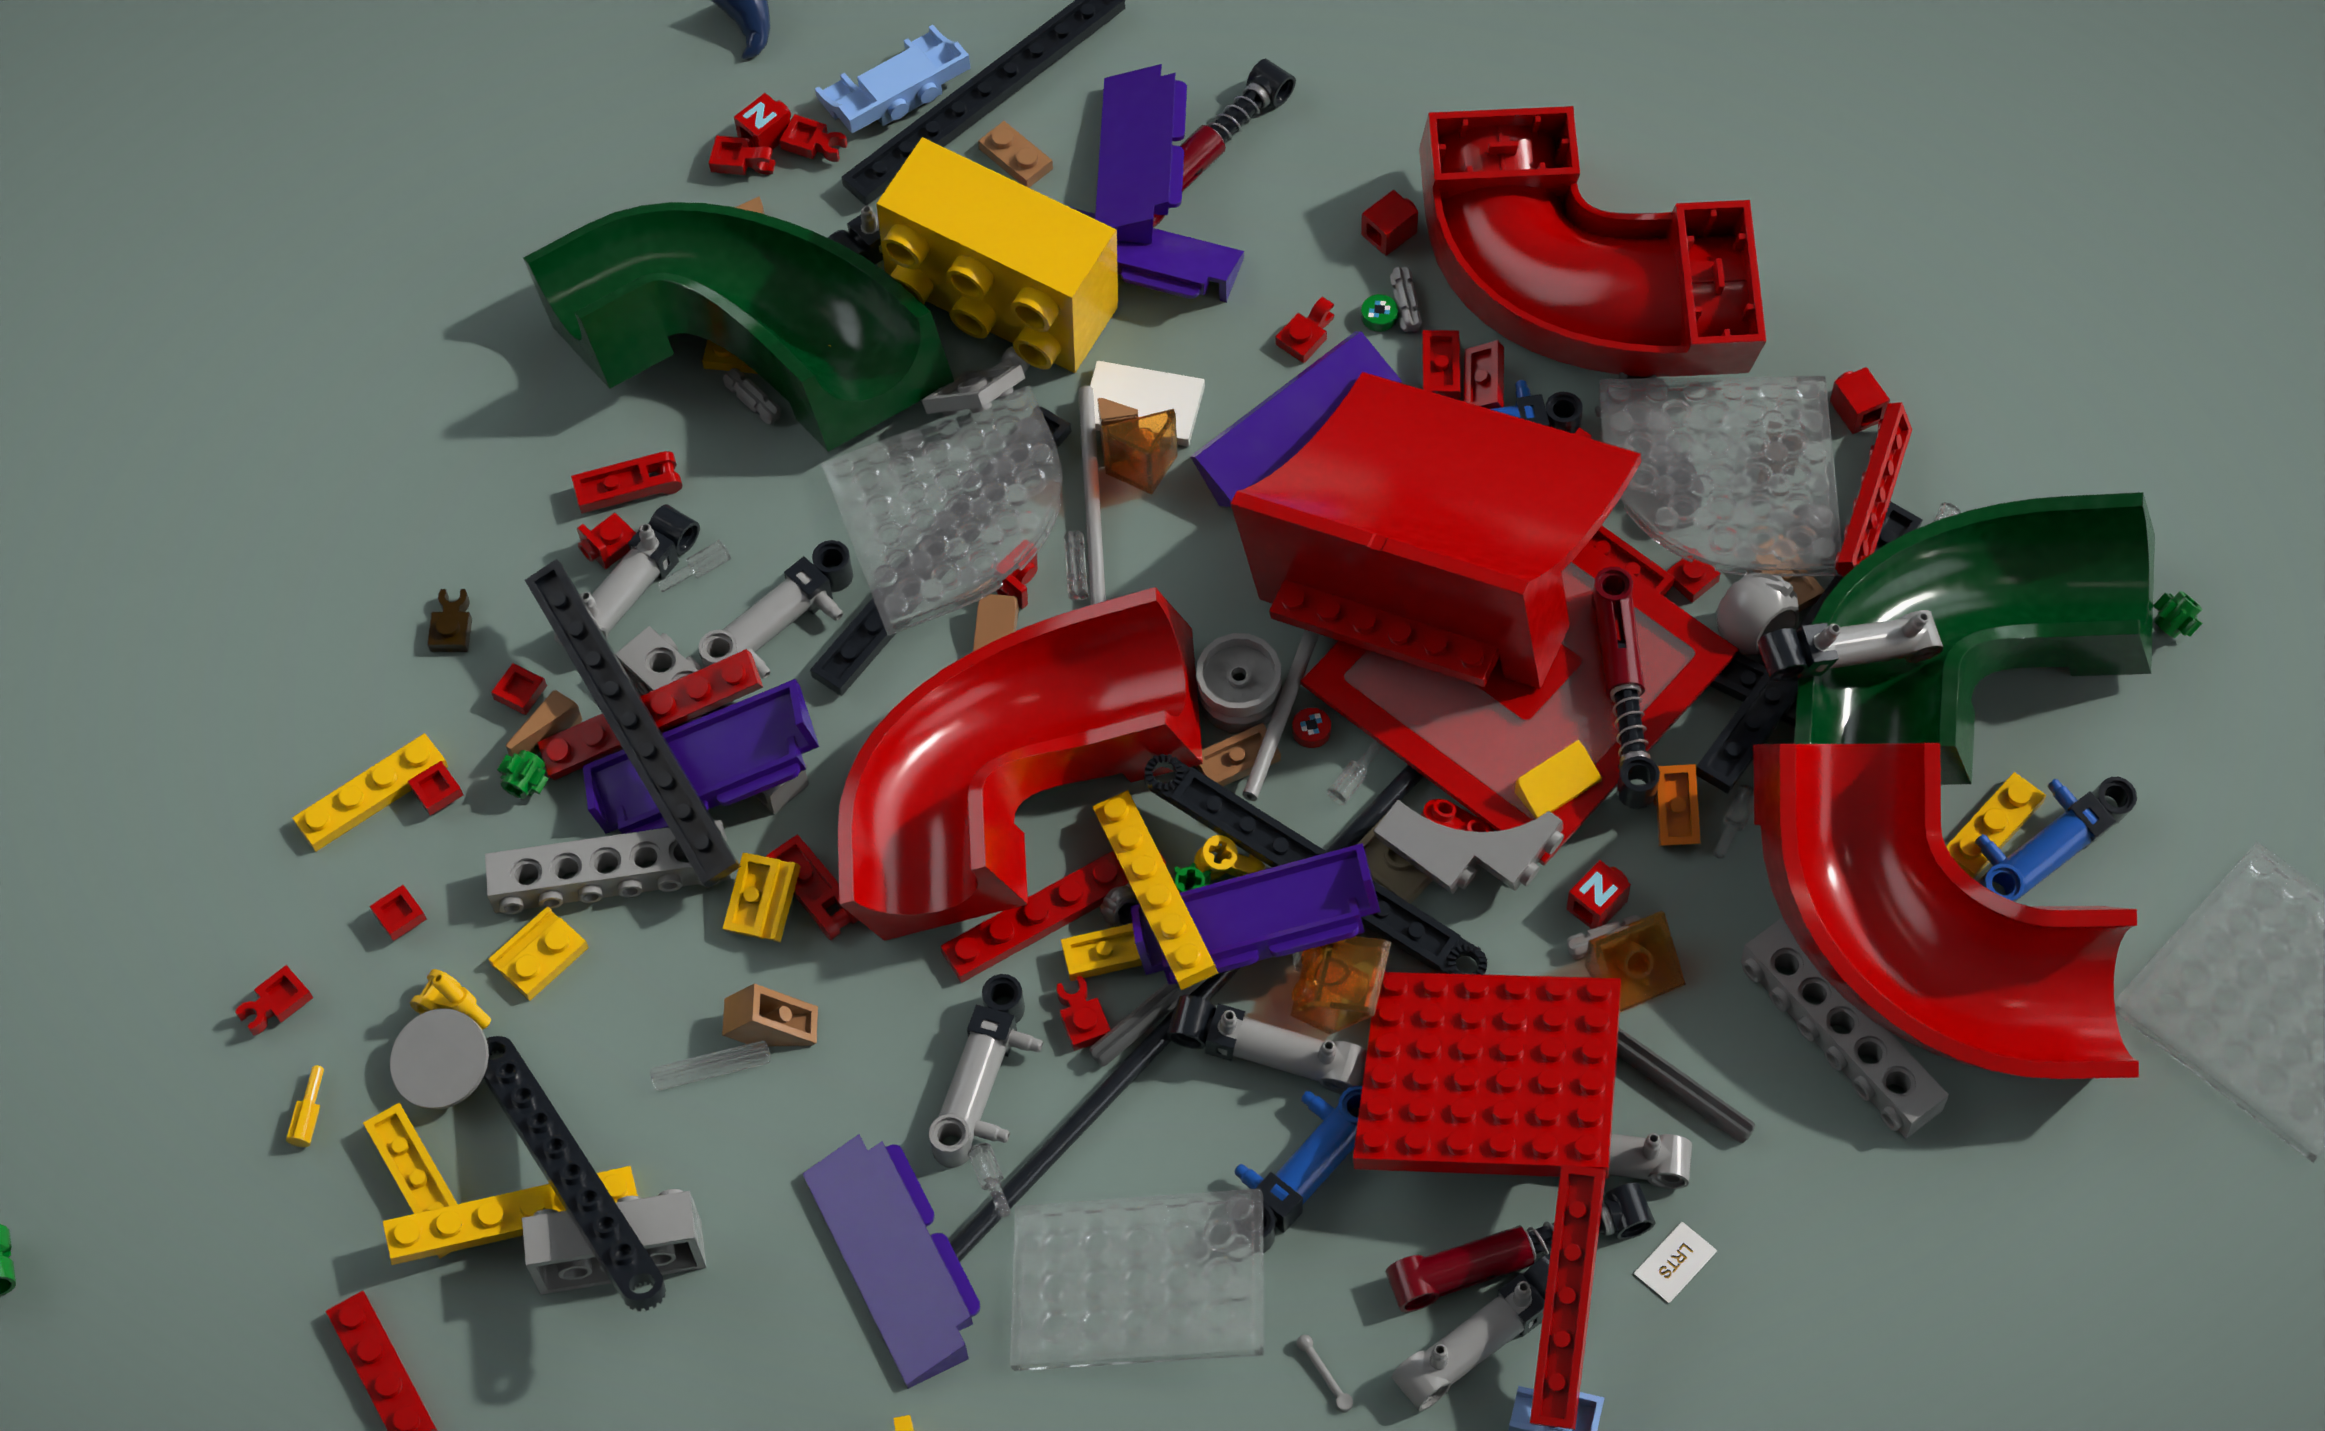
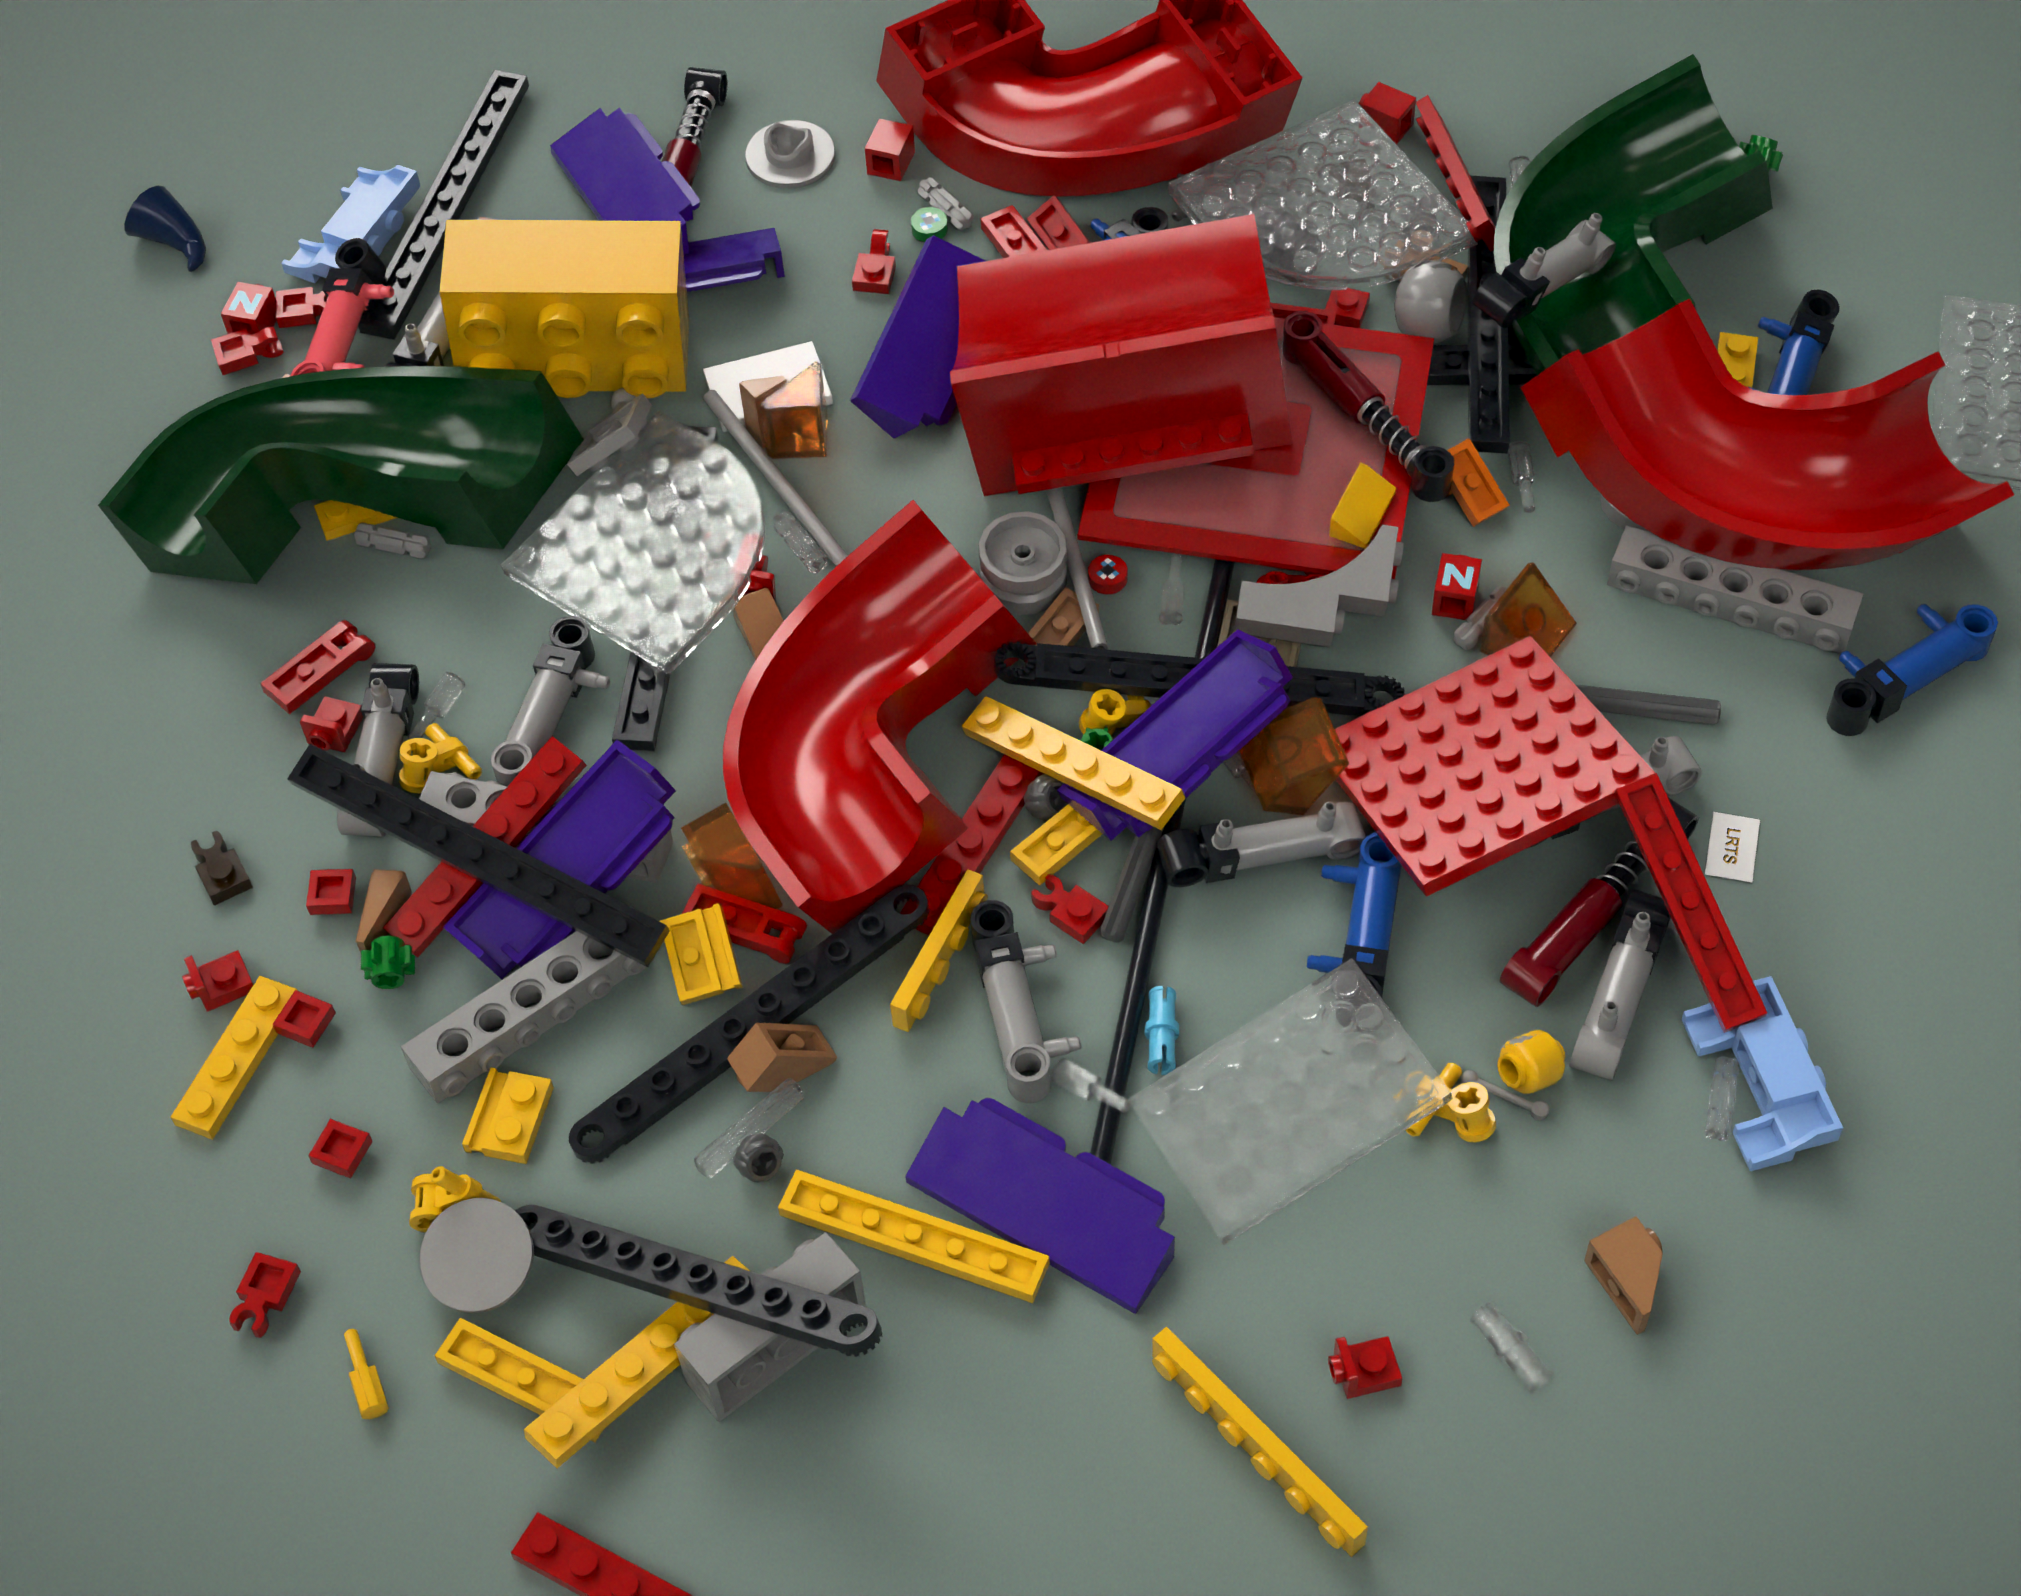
camera: 30 degrees left, 5 degrees down
(392, 719) = (218, 980): none -> red bracket
(665, 613) = (434, 755): none -> yellow piece
(699, 1095) = (758, 1157): none -> dark grey piece
(776, 1228) = (914, 1236): none -> yellow plate
(783, 972) = (777, 1001): none -> black plate
(817, 817) = (726, 858): none -> clear orange slope
(845, 149) = (350, 293): none -> coral piece
(937, 1002) = (933, 960): none -> yellow plate
(1081, 1162) = (1162, 1030): none -> medium azure pin
(1277, 1364) = (1467, 1109): none -> yellow piece
(1306, 182) = (790, 154): none -> light grey piece
(1360, 1358) = (1531, 1062): none -> yellow head
(1913, 1189) = (1882, 686): none -> blue piece

